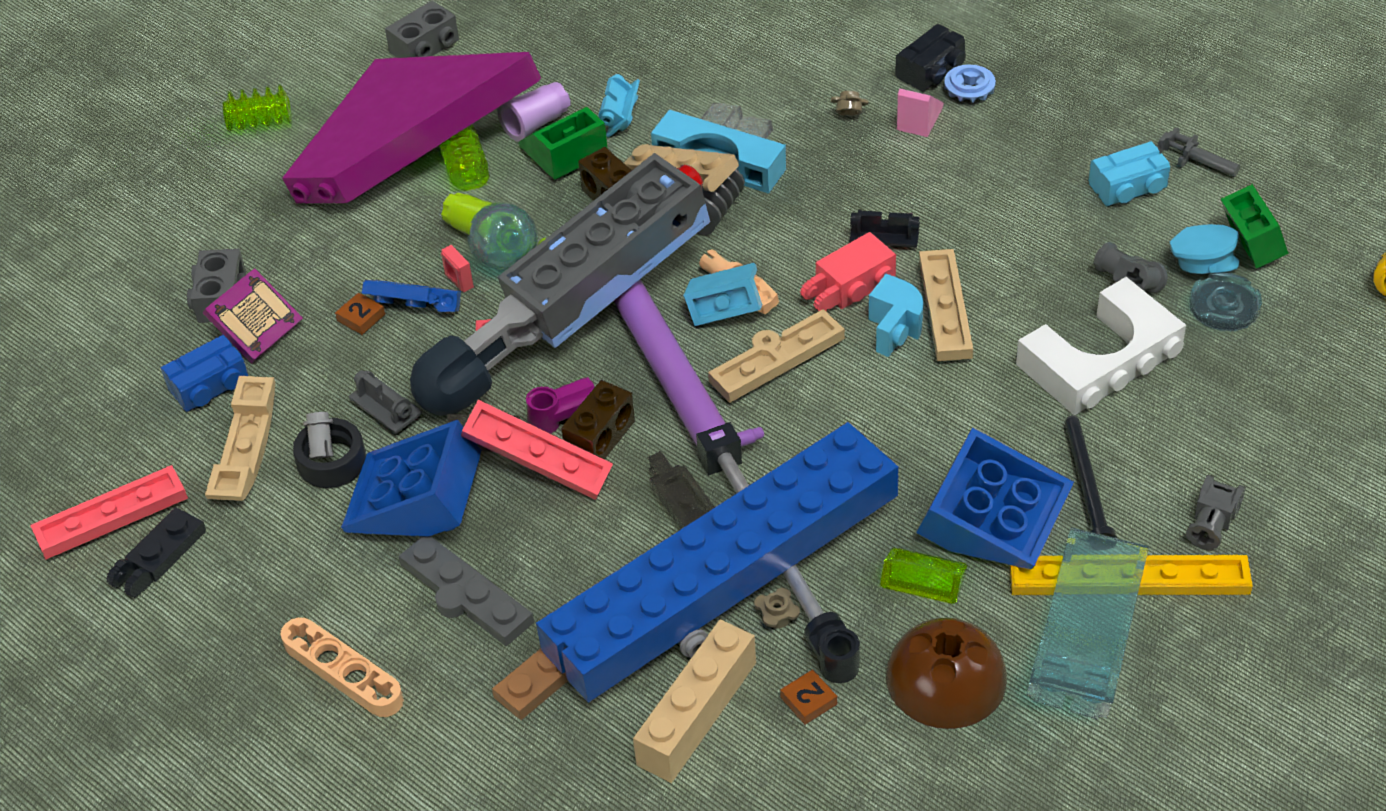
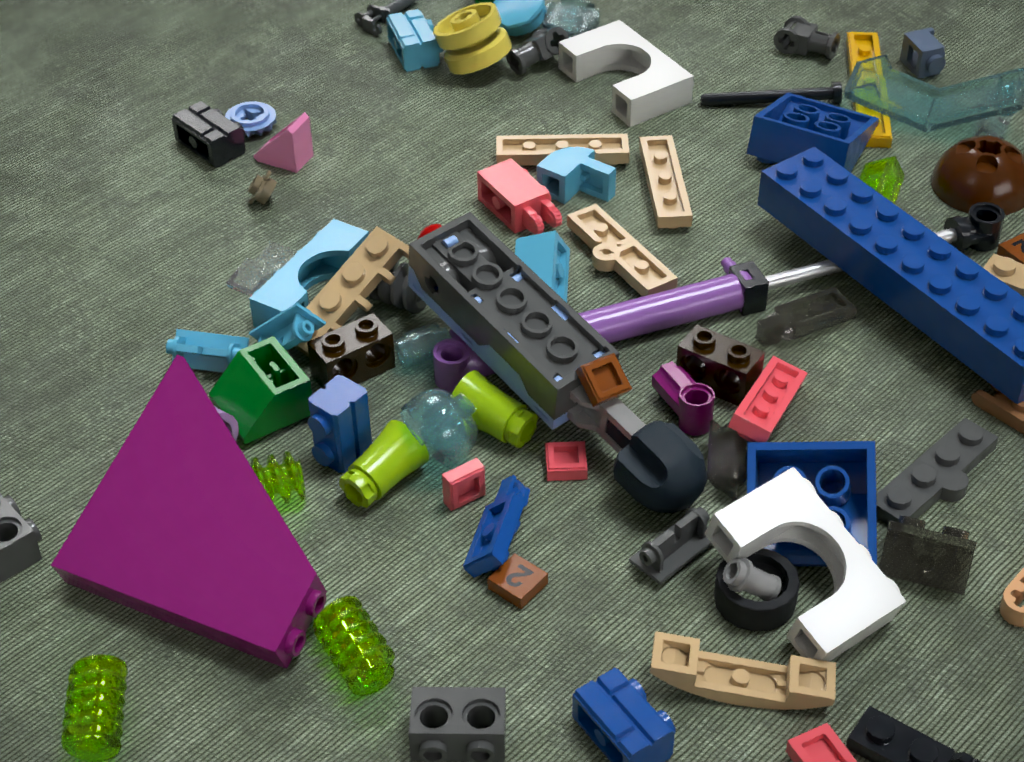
camera: 90 degrees left, 5 degrees down
(252, 315) = (528, 672): tile -> none
(294, 221) = (355, 645): none -> clear neon green piece
(309, 509) = (793, 512): none -> white arch
(356, 564) = (927, 555): none -> clear smoke bracket
(509, 305) = (603, 379): none -> dark orange tile
(511, 176) = (339, 423): none -> blue brick
(624, 136) = (289, 327): none -> medium azure hinge
(898, 230) = (454, 178): black hinge -> none
(900, 385) = (665, 182): none -> tan plate
(1114, 207) = (472, 38): none -> light yellow wheel
(1205, 626) = (928, 53): none -> sand blue brick

